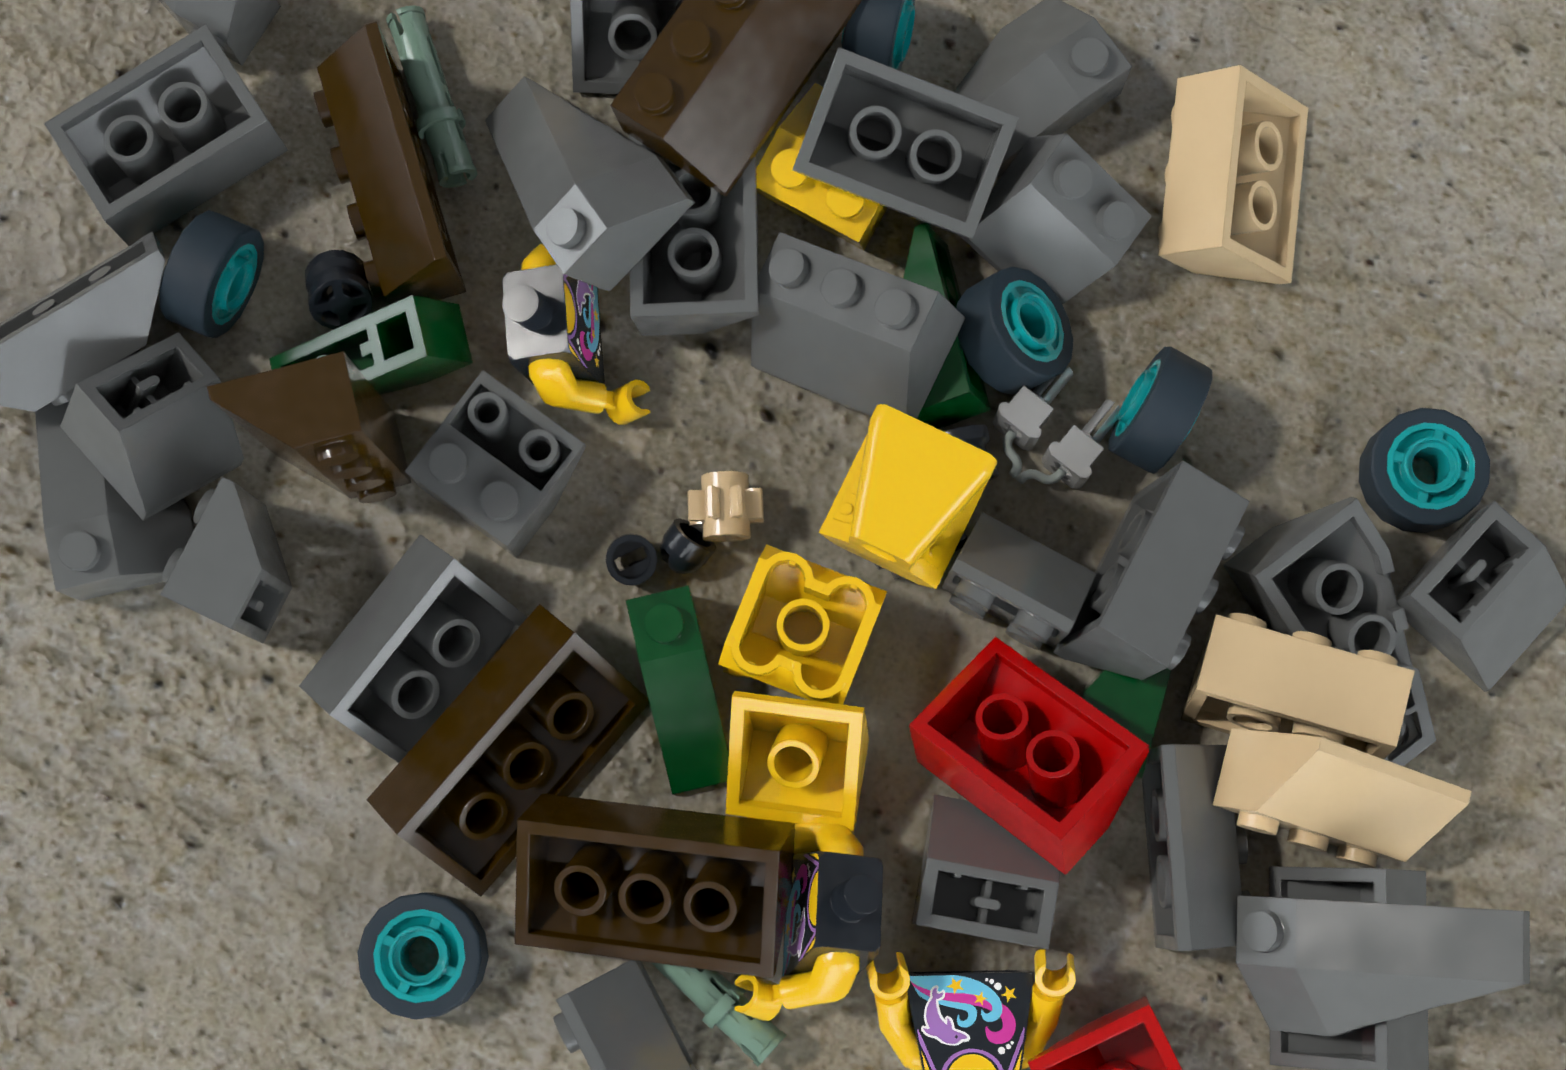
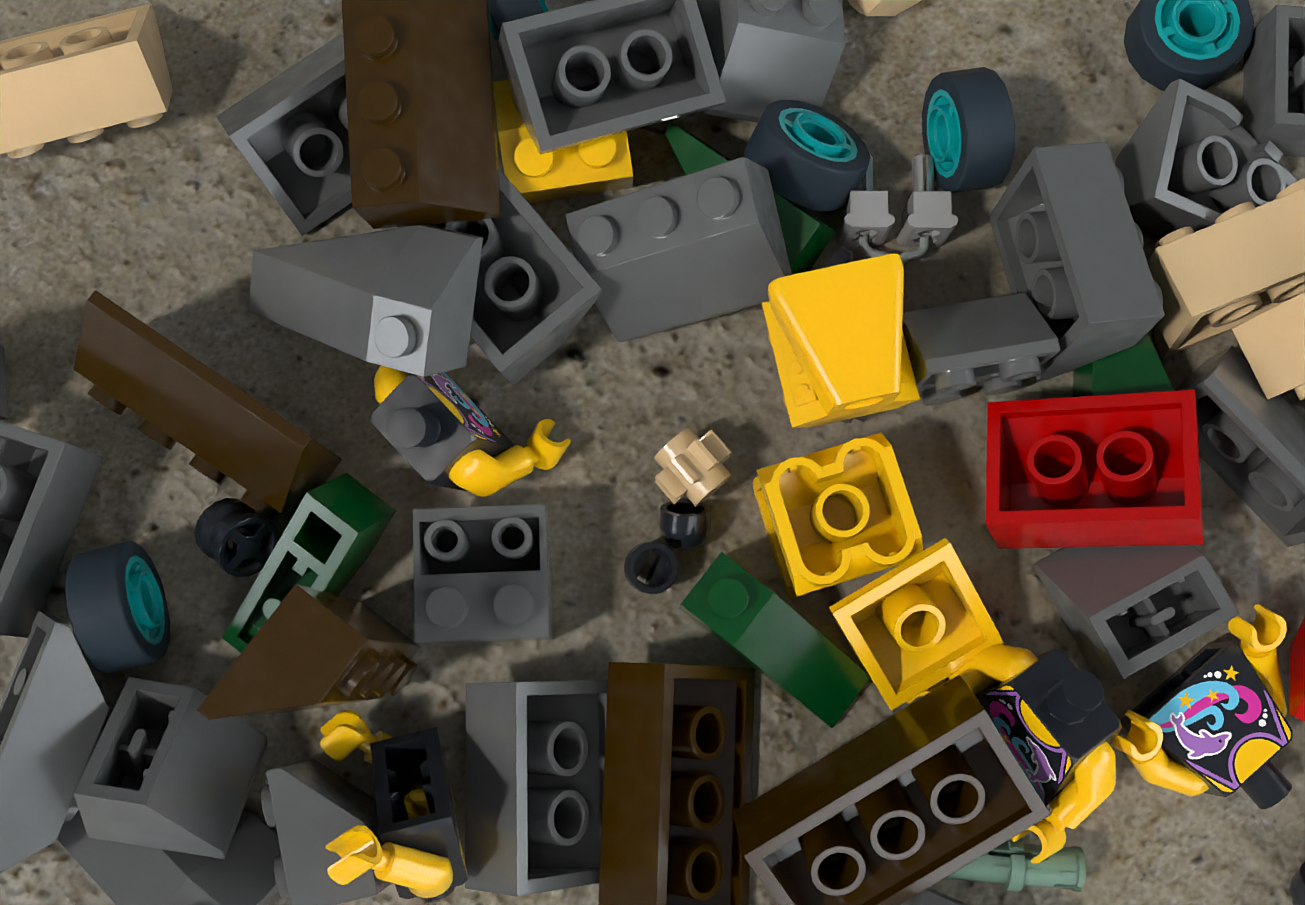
camera: 40 degrees left, 0 degrees up
(304, 595) = (413, 808): none -> torso
(437, 115) = (209, 337): sand green pin -> none

